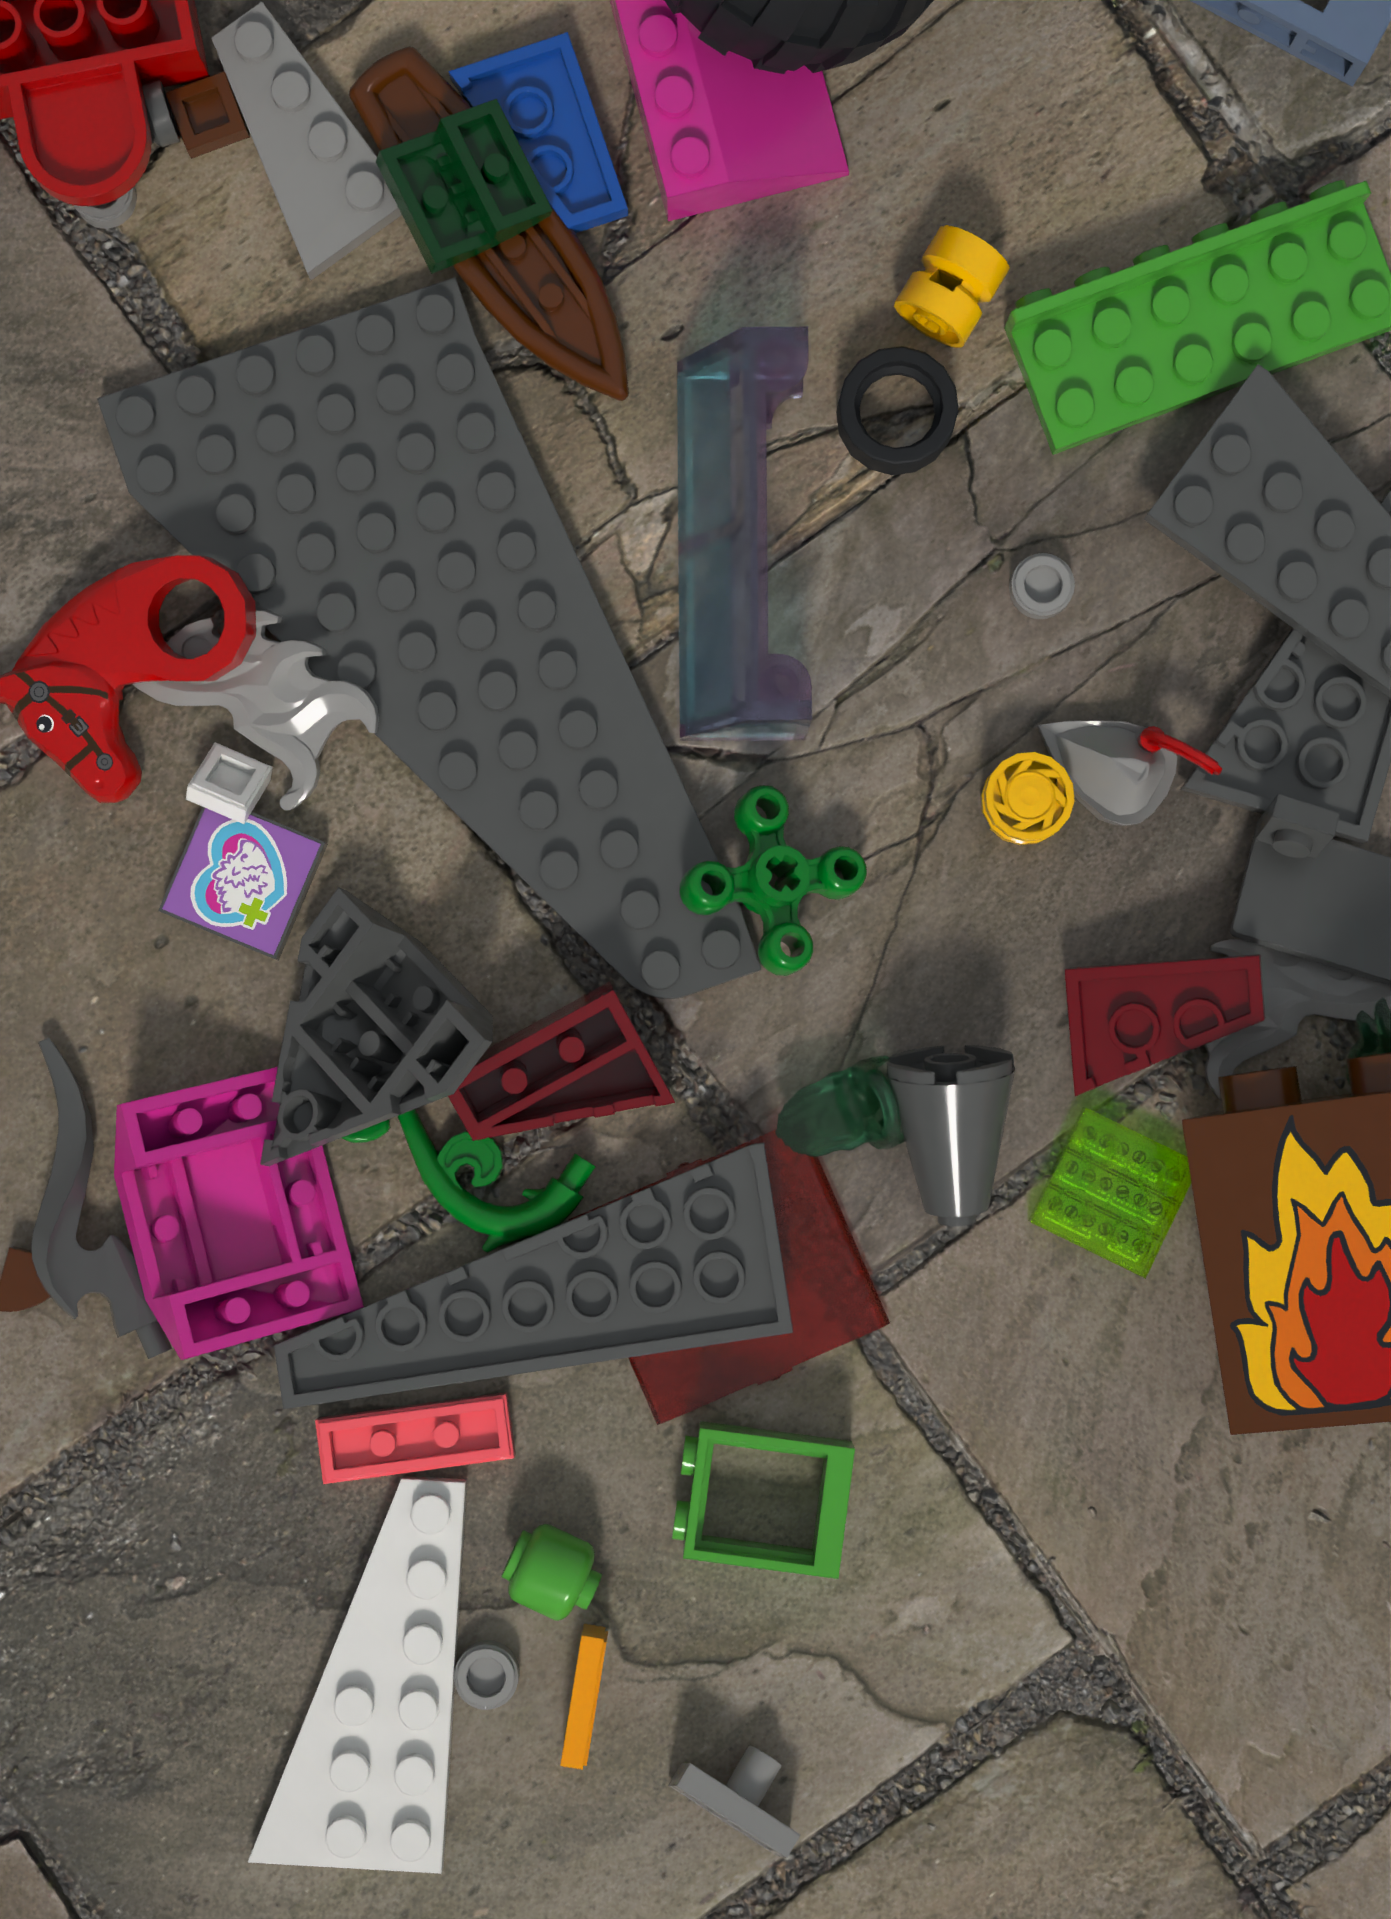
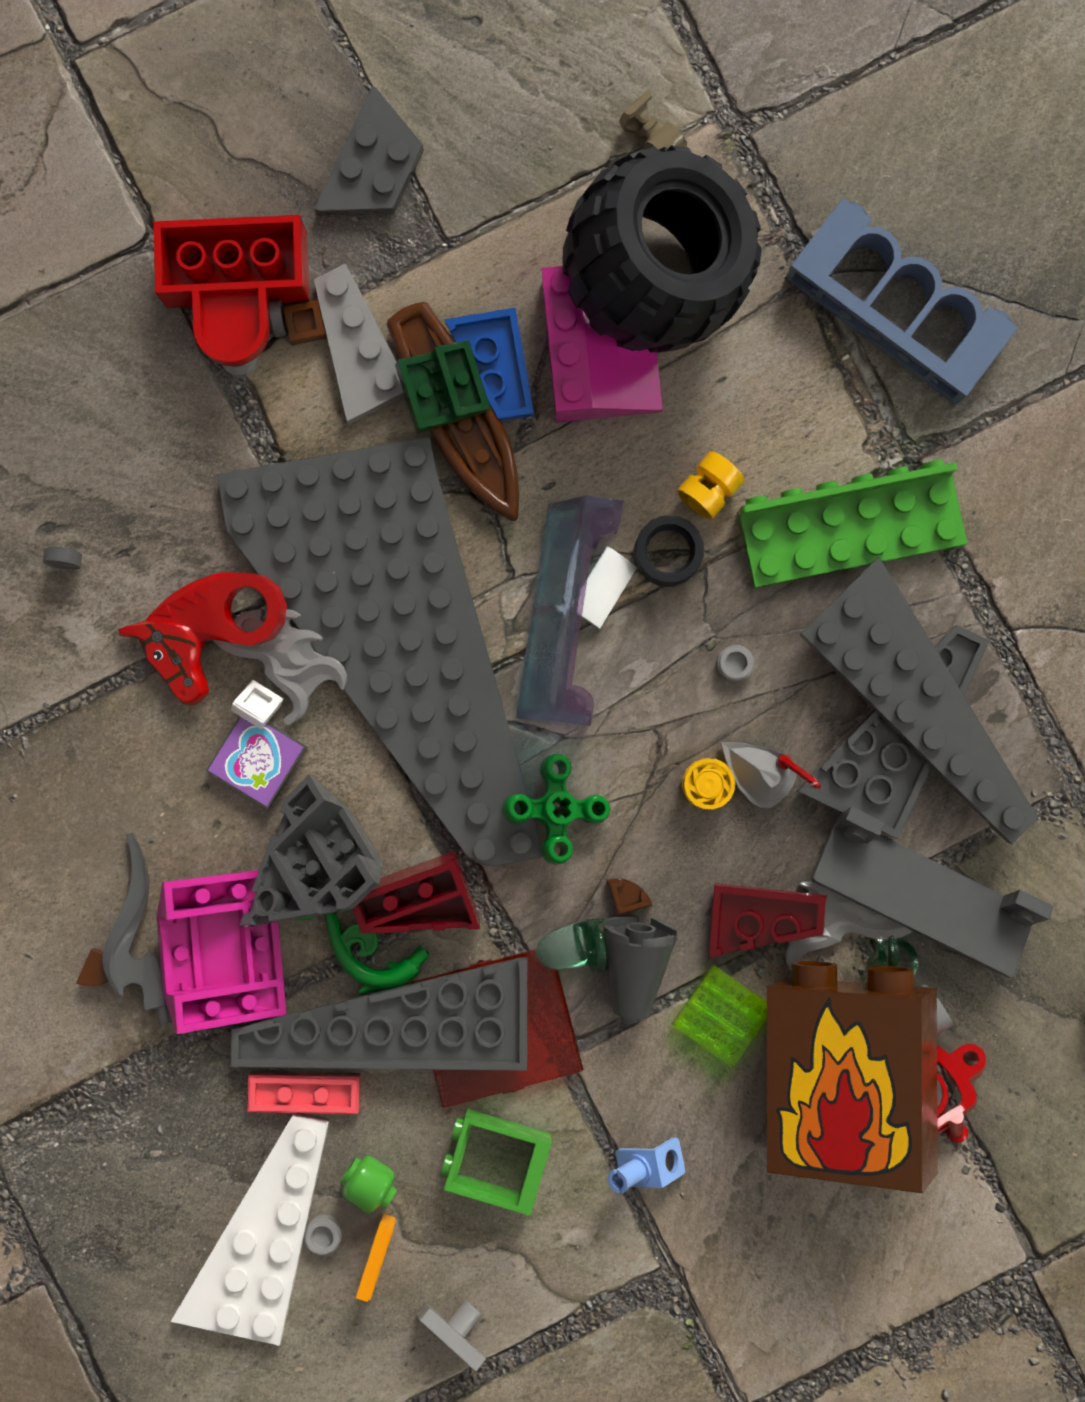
camera: 10 degrees right, 0 degrees up
(799, 487) = (605, 586): none -> white slope
(919, 1014) = (627, 896): none -> reddish brown tile
(1023, 1468) = (646, 1167): none -> light blue bracket

